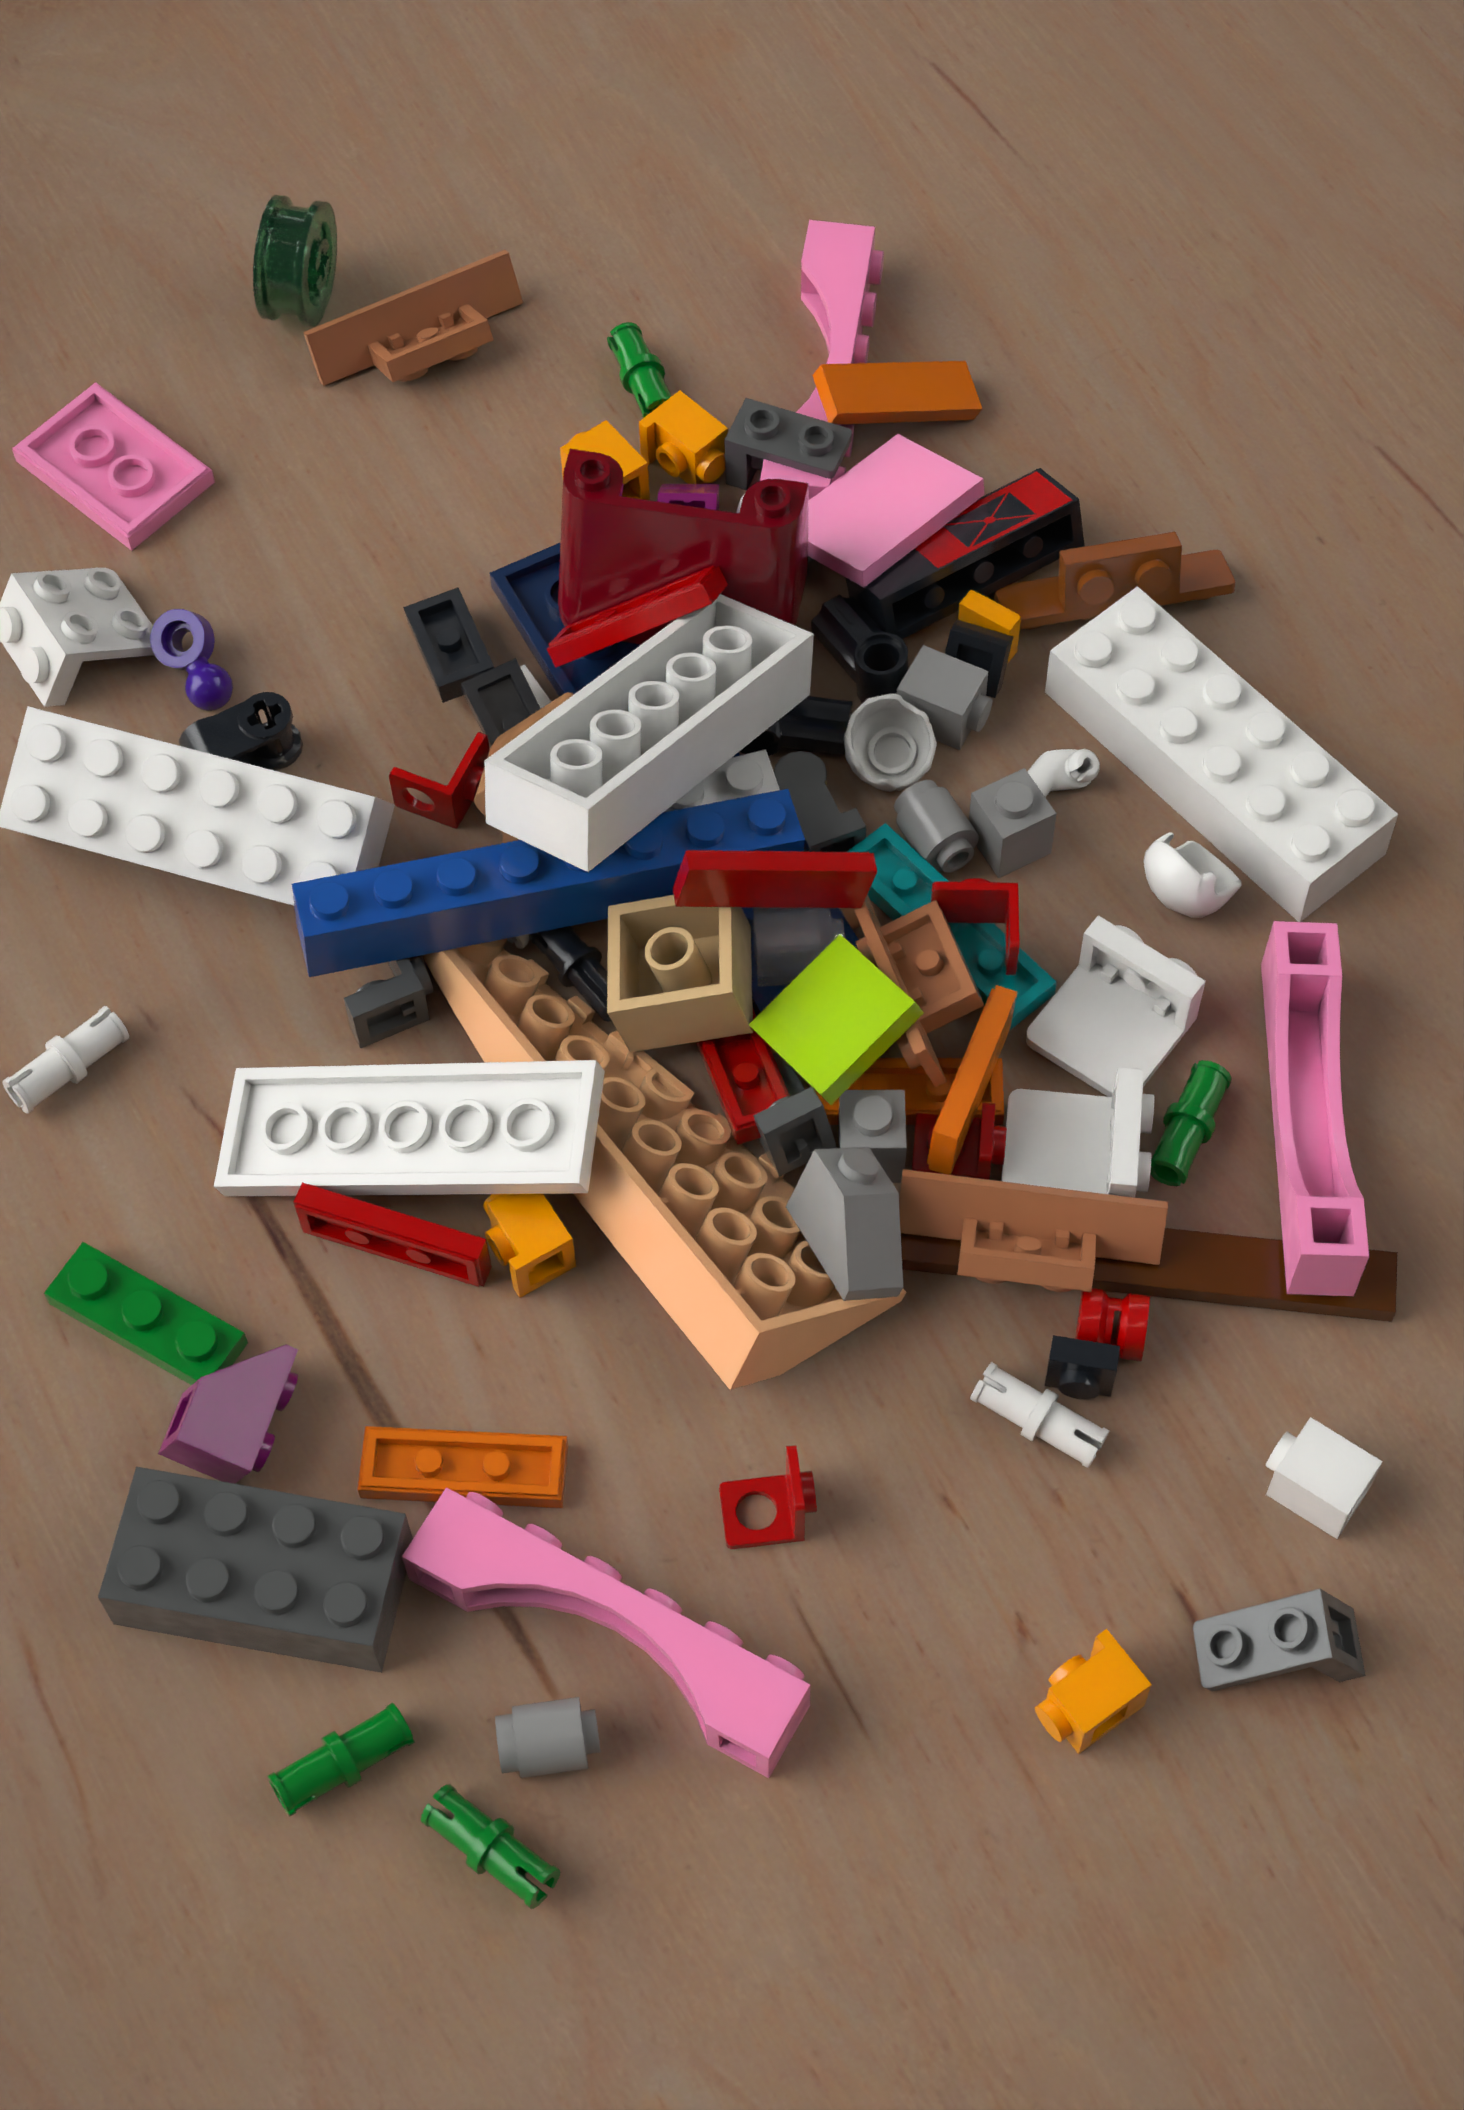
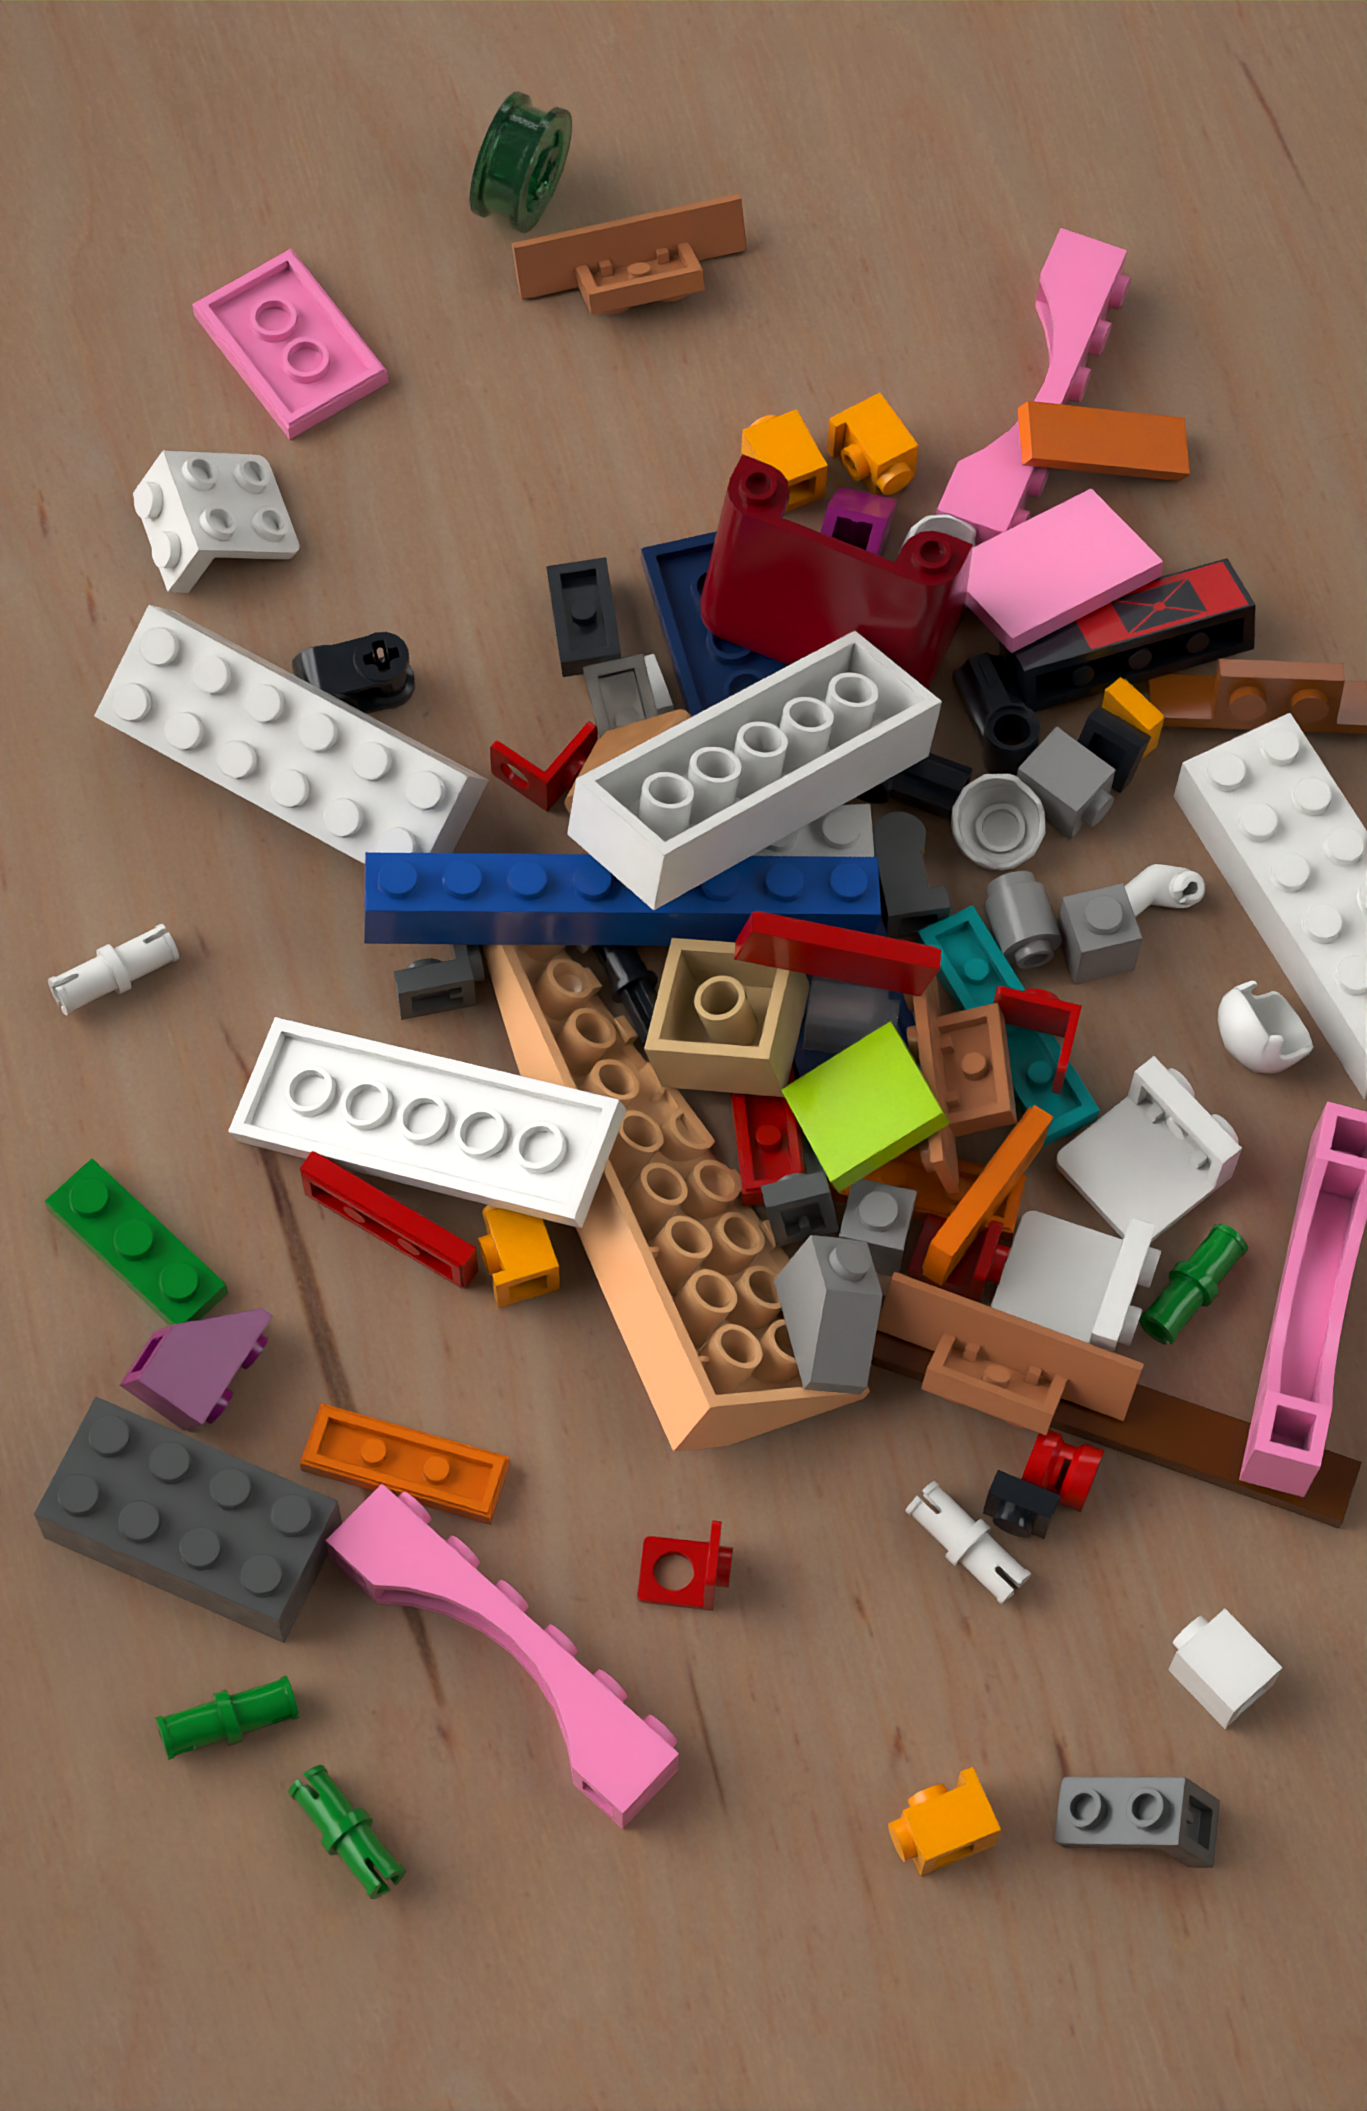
camera: 10 degrees right, 5 degrees up
(207, 684) = (333, 604): dark purple plate -> none
(546, 1737) = (422, 1743): light grey brick -> none
(637, 615) = (773, 638): red tile -> none
(640, 370) = (847, 355): green pin -> none
(783, 438) = (973, 470): dark grey bracket -> none

